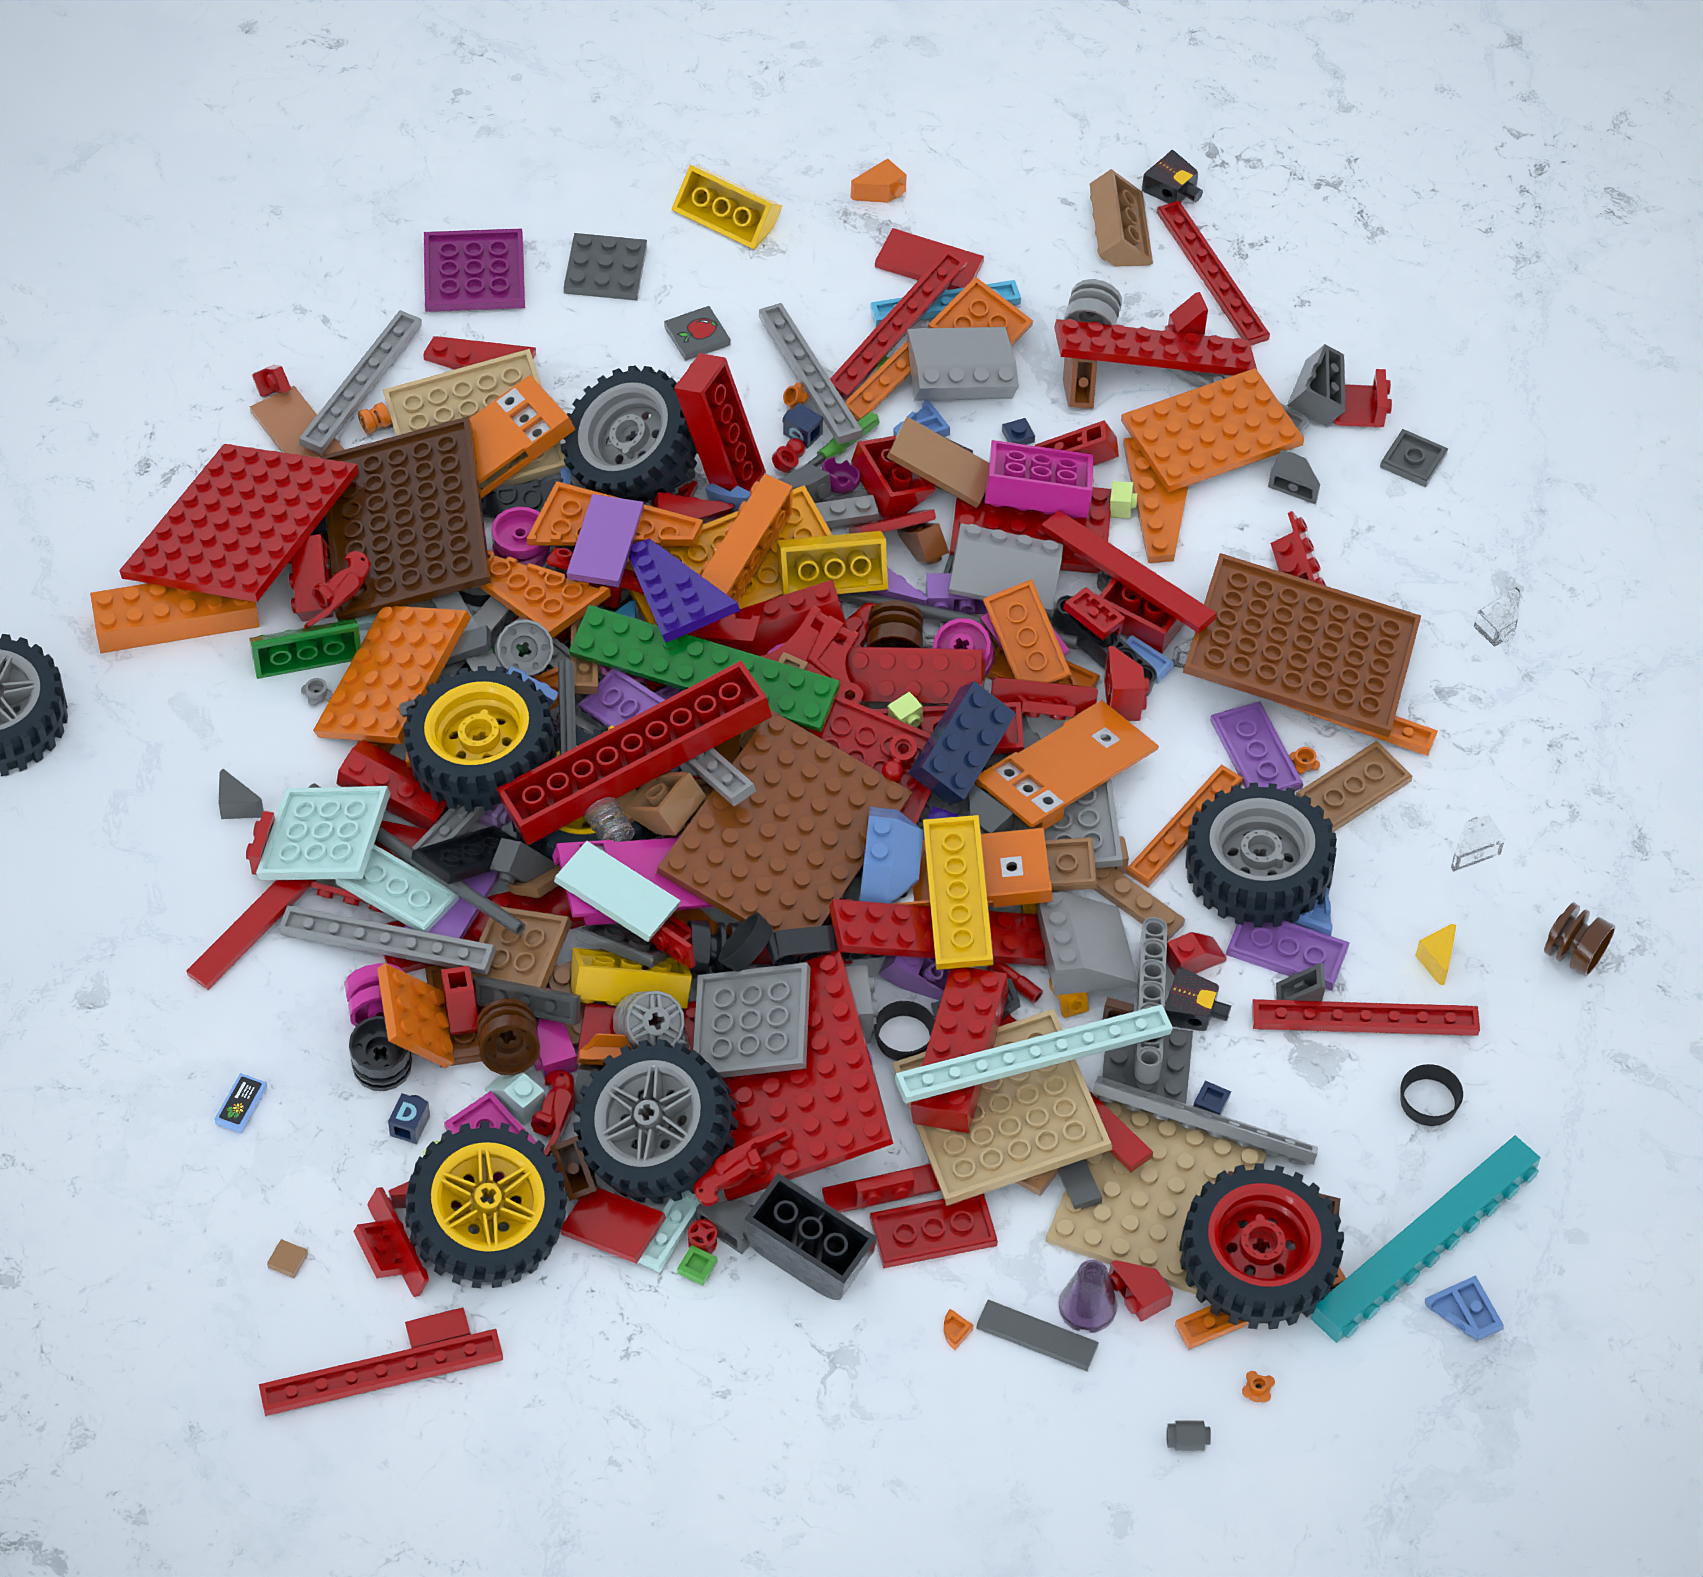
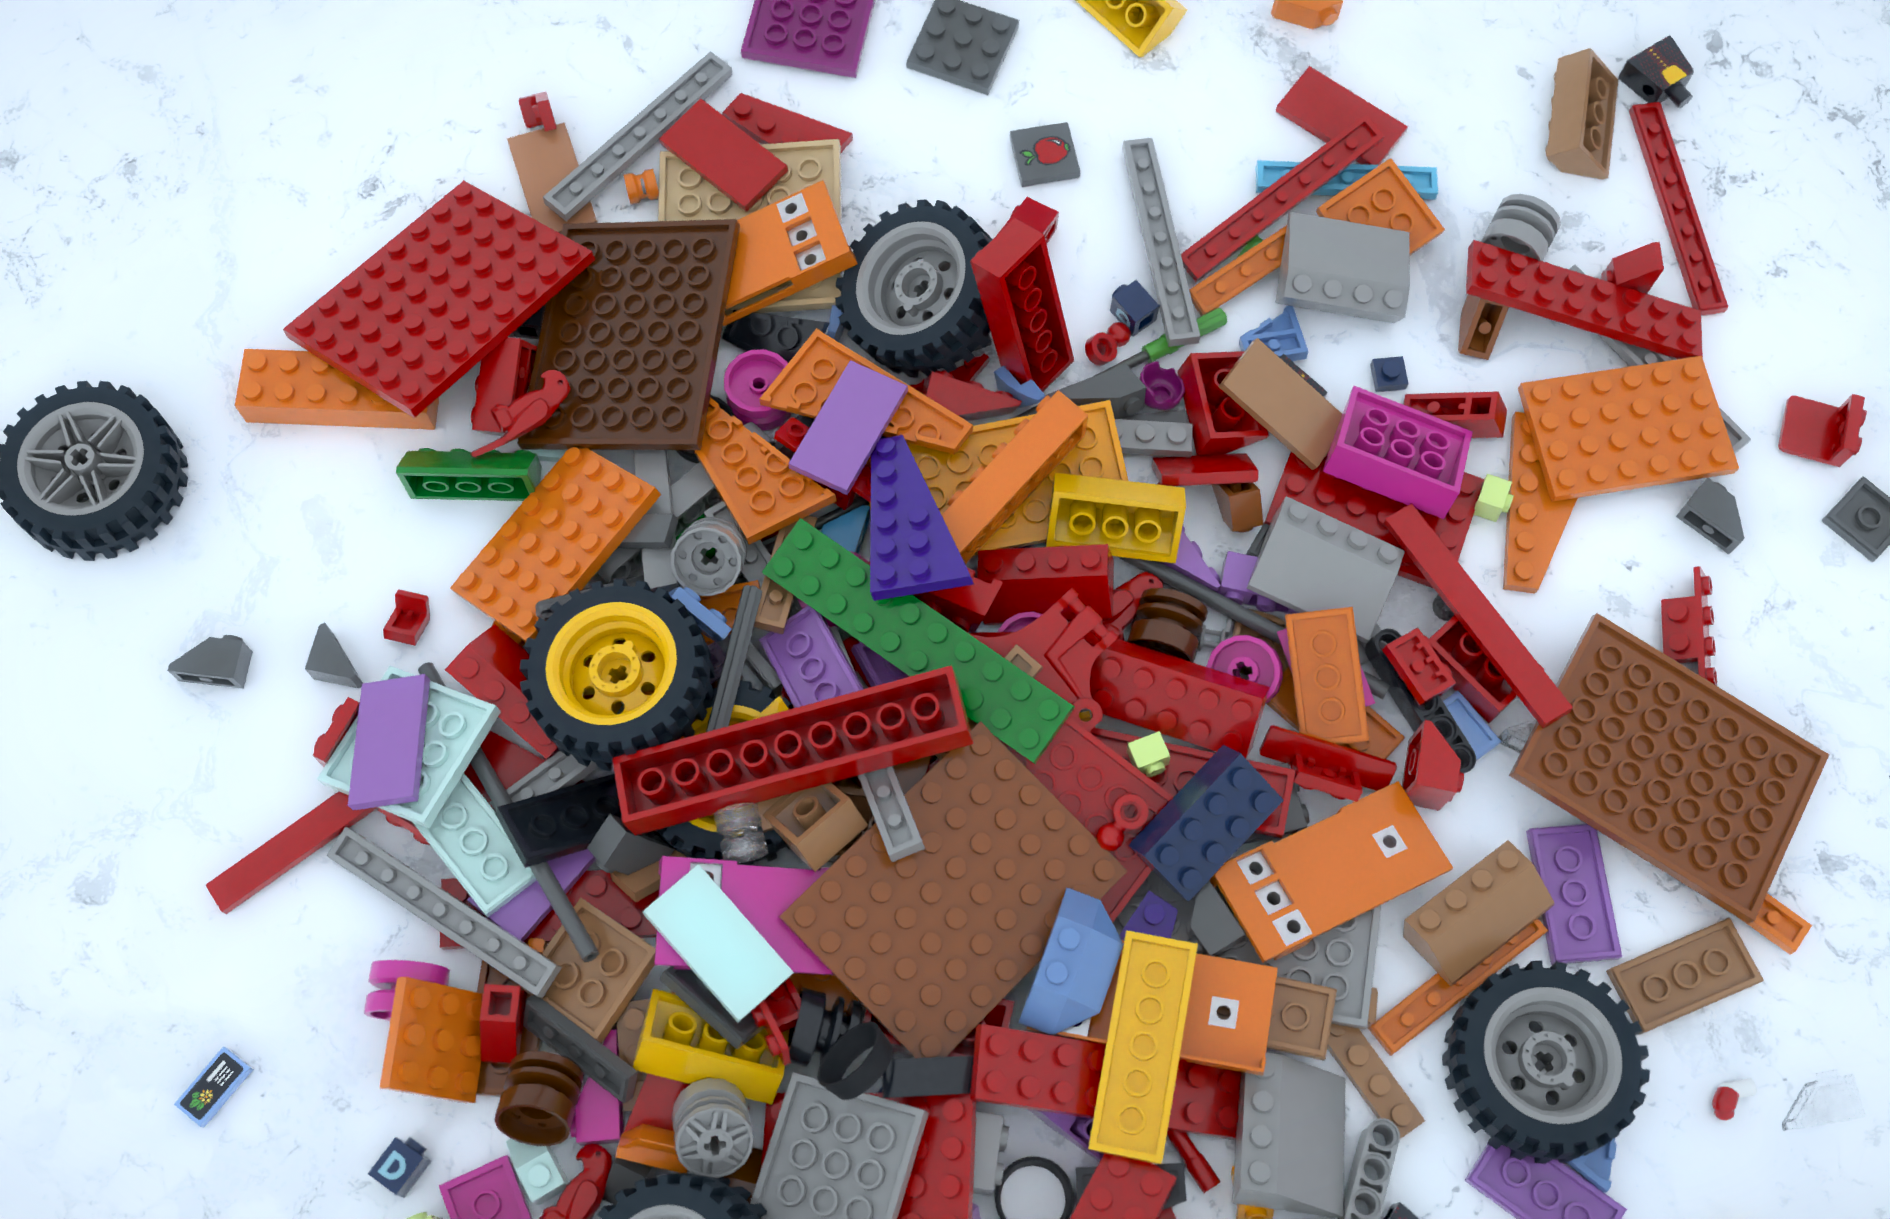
camera: 15 degrees right, 15 degrees up
(138, 820) = (214, 662): none -> dark grey slope
(287, 755) = (408, 618): none -> red bracket
(309, 830) = (389, 742): none -> medium lavender tile
(316, 685) = (469, 526): light grey plate -> none
(371, 1043) = (363, 1075): black wheel -> none
(438, 379) = (723, 154): none -> red tile
(795, 395) = (1135, 266): orange plate -> none
(1185, 773) = (1478, 913): none -> medium nougat slope
(1193, 952) = (1425, 1178): red slope -> none
(1304, 754) = (1638, 916): orange plate -> none
(1321, 386) = (1776, 398): dark grey wedge -> none
(1406, 853) = (1728, 1094): none -> red arm

